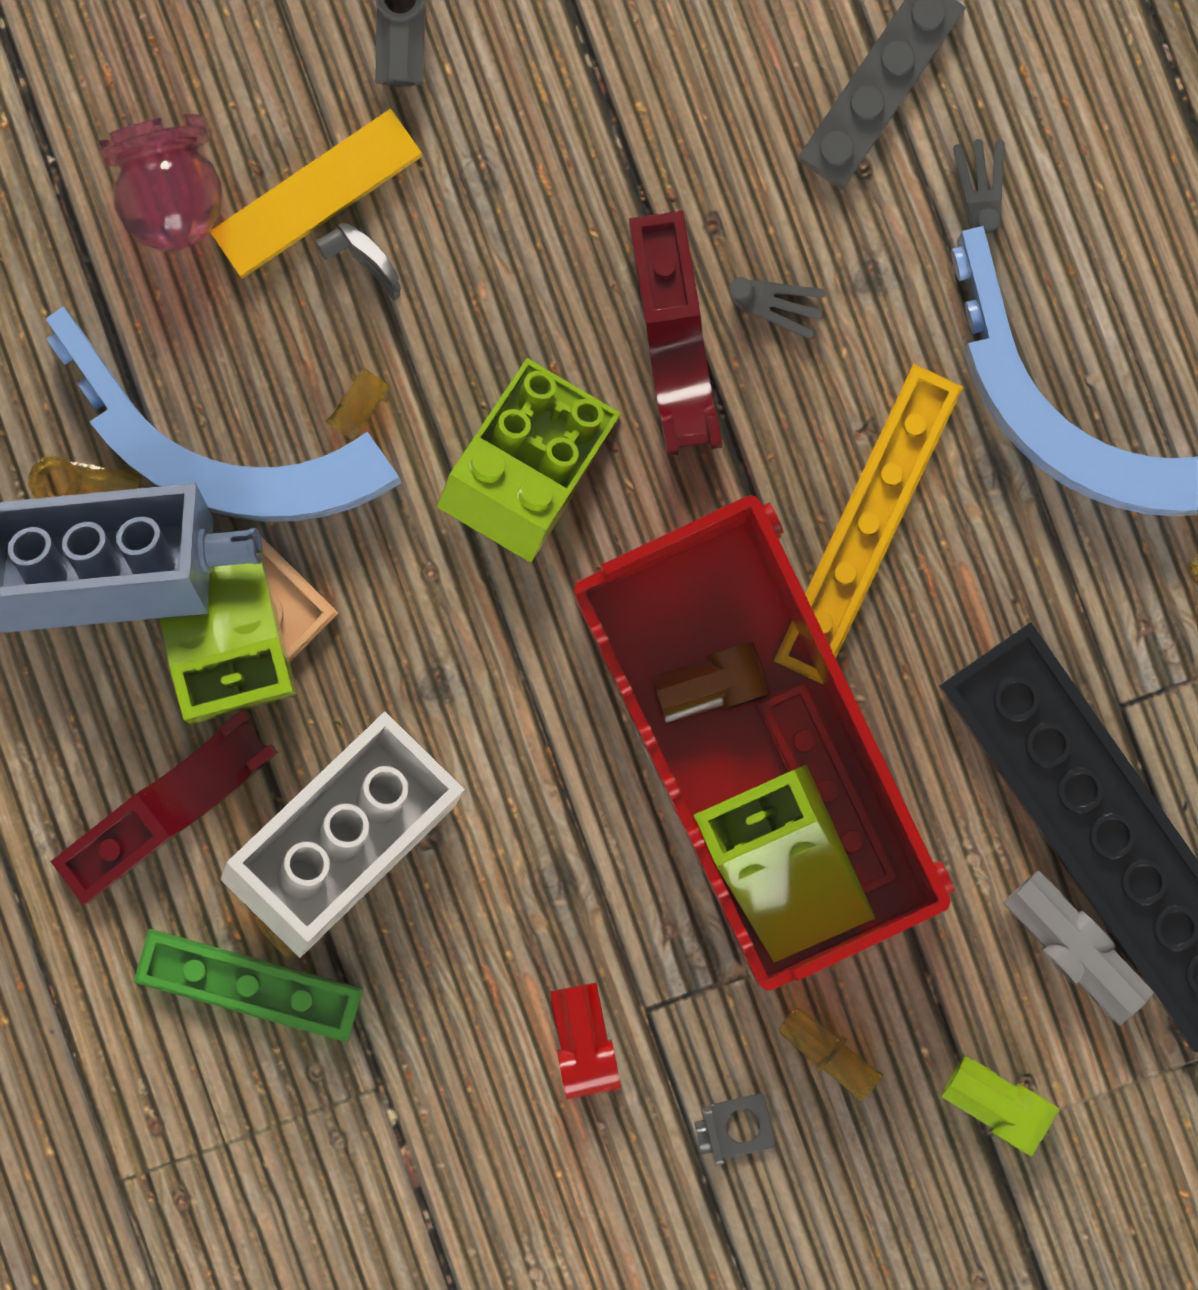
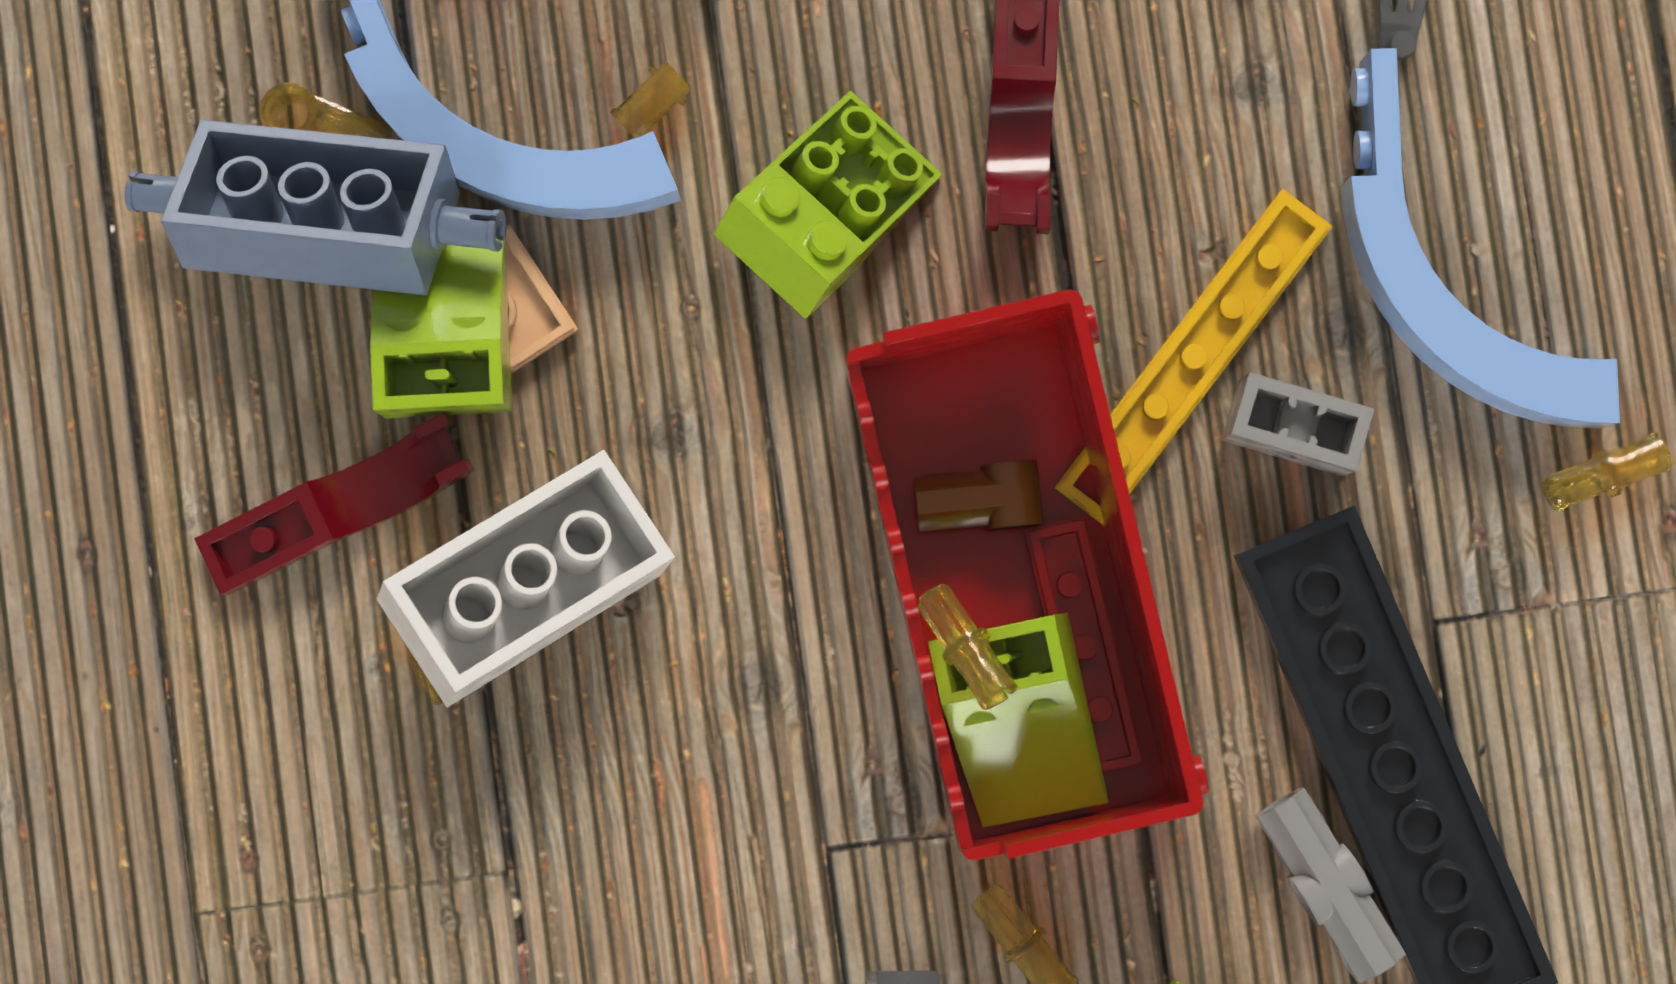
camera: 10 degrees right, 0 degrees up
(248, 985) = (386, 725): bright green tile -> none
(585, 1053) = (749, 883): red piece -> none
(726, 812) = (966, 646): none -> clear yellow axle
(759, 298) = (1125, 78): dark grey piece -> none
(967, 563) = (1297, 424): none -> light grey brick

